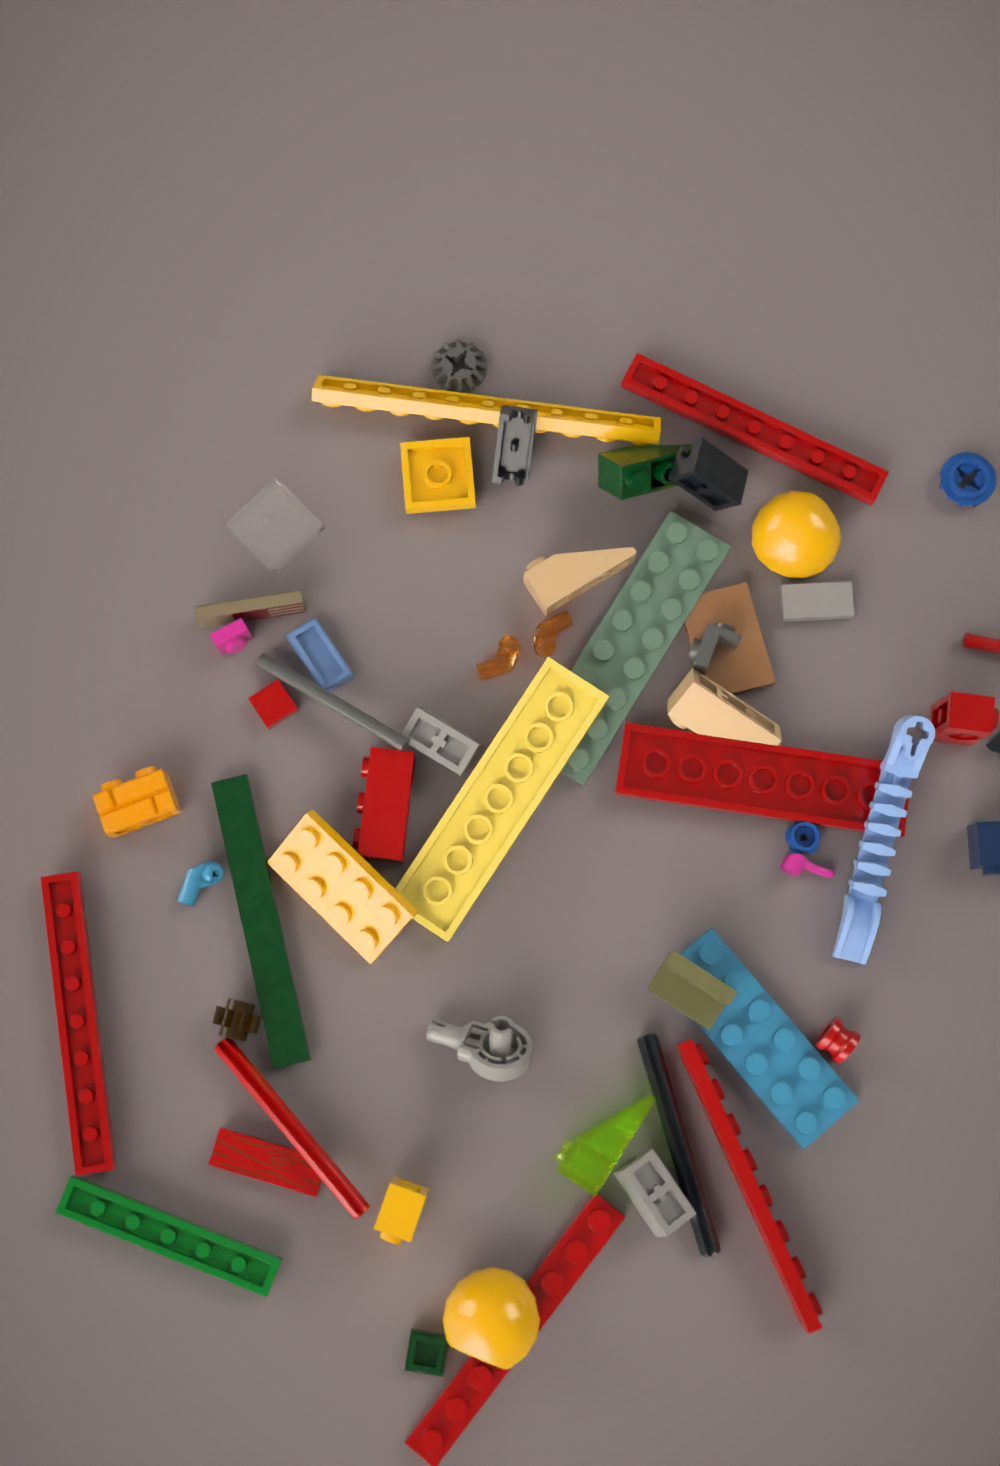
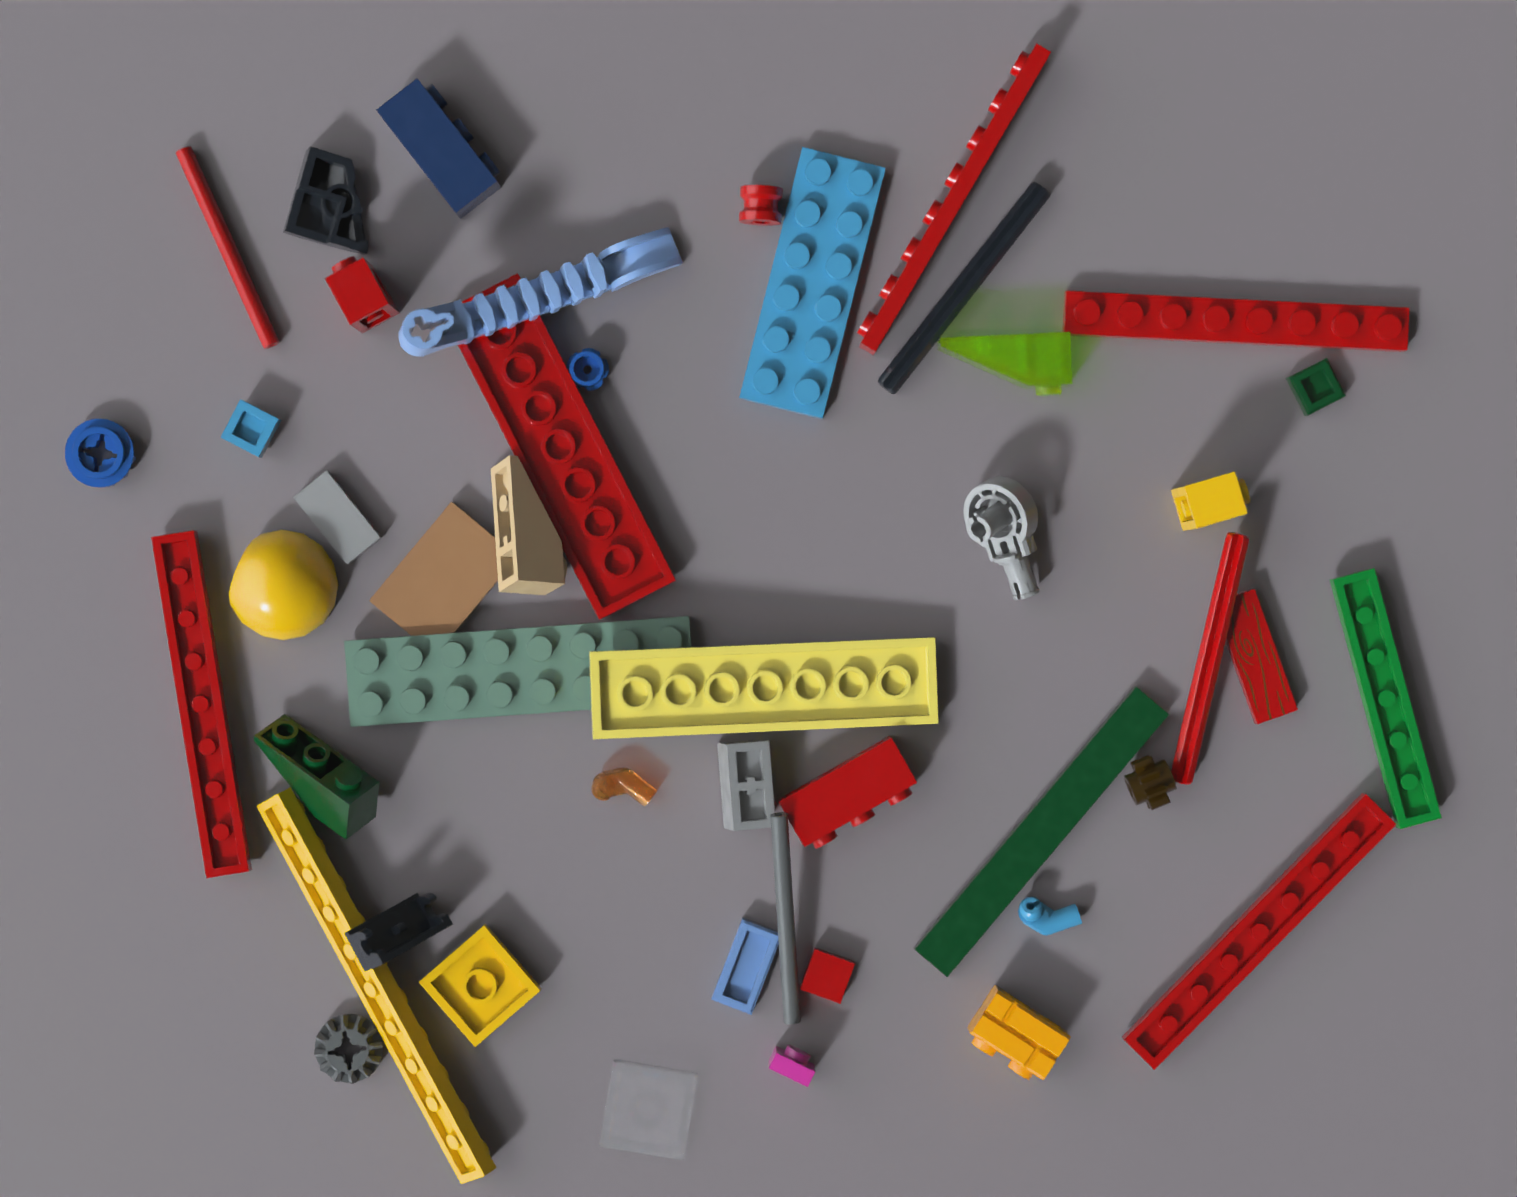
camera: 125 degrees left, 10 degrees up
(250, 608) = (751, 1068): dark tan tile -> none
(342, 886) = (955, 776): yellow plate -> none
(492, 1317) = (1243, 350): yellow cylinder -> none
(547, 631) = (563, 760): clear orange arm -> none
(569, 575) = (490, 779): tan slope -> none
(655, 1193) = (1026, 278): light grey hinge -> none
(691, 989) = (816, 375): olive panel -> none
(703, 649) = (473, 594): dark grey bracket -> none
(709, 475) = (287, 712): black hinge -> none
(795, 863) = (618, 359): dark pink hand -> none
(917, 586) = (250, 428): none -> dark azure plate

